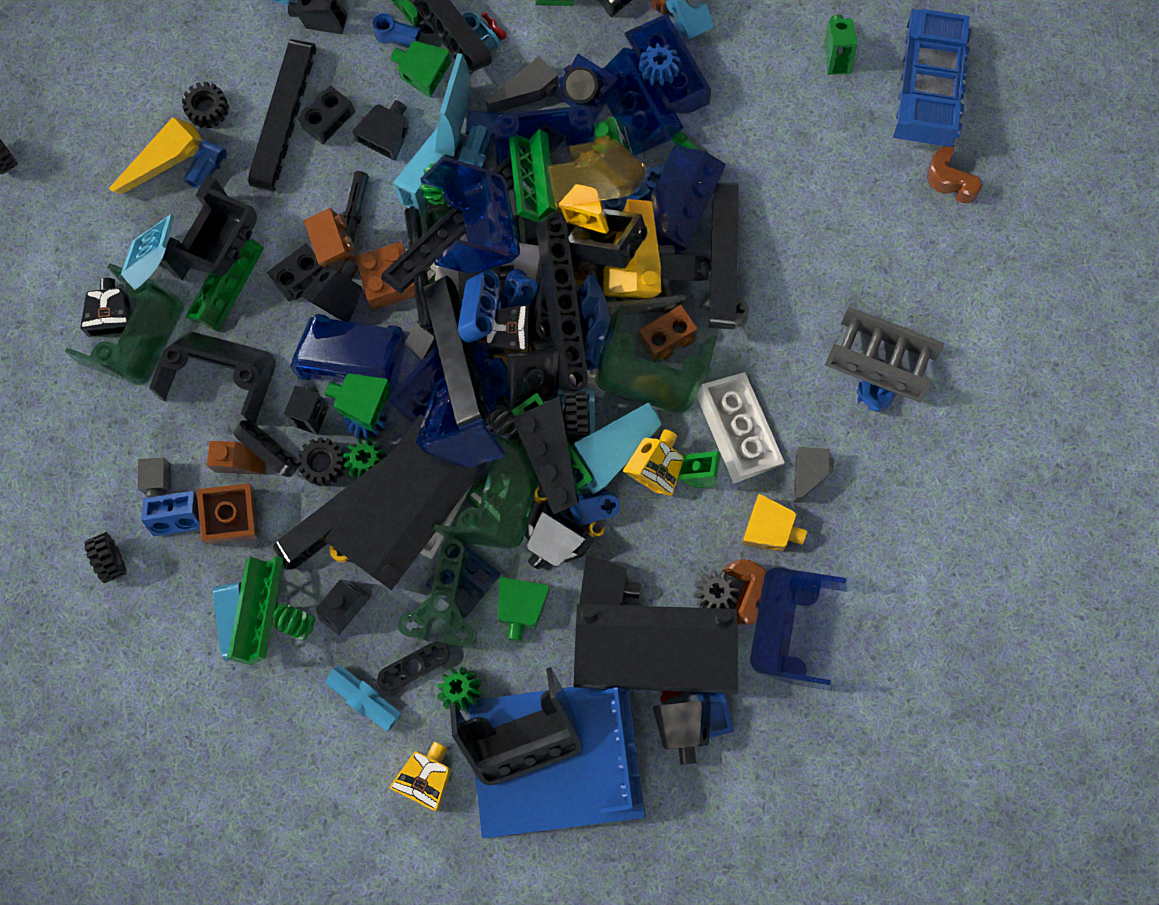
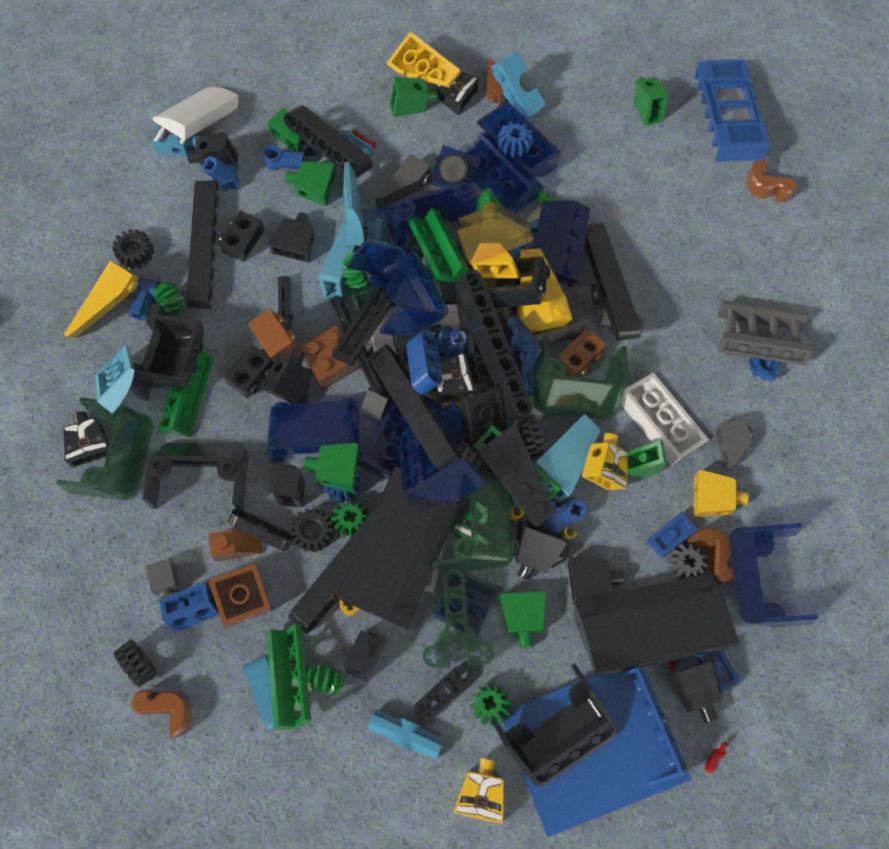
camera: 20 degrees left, 5 degrees down
(130, 605) = (171, 702): none -> dark orange animal
(230, 172) = (170, 299): none -> green gear
(325, 38) = (222, 173): none -> blue piece
(683, 803) = (714, 757): none -> red piece
(708, 558) = (671, 535): none -> blue plate

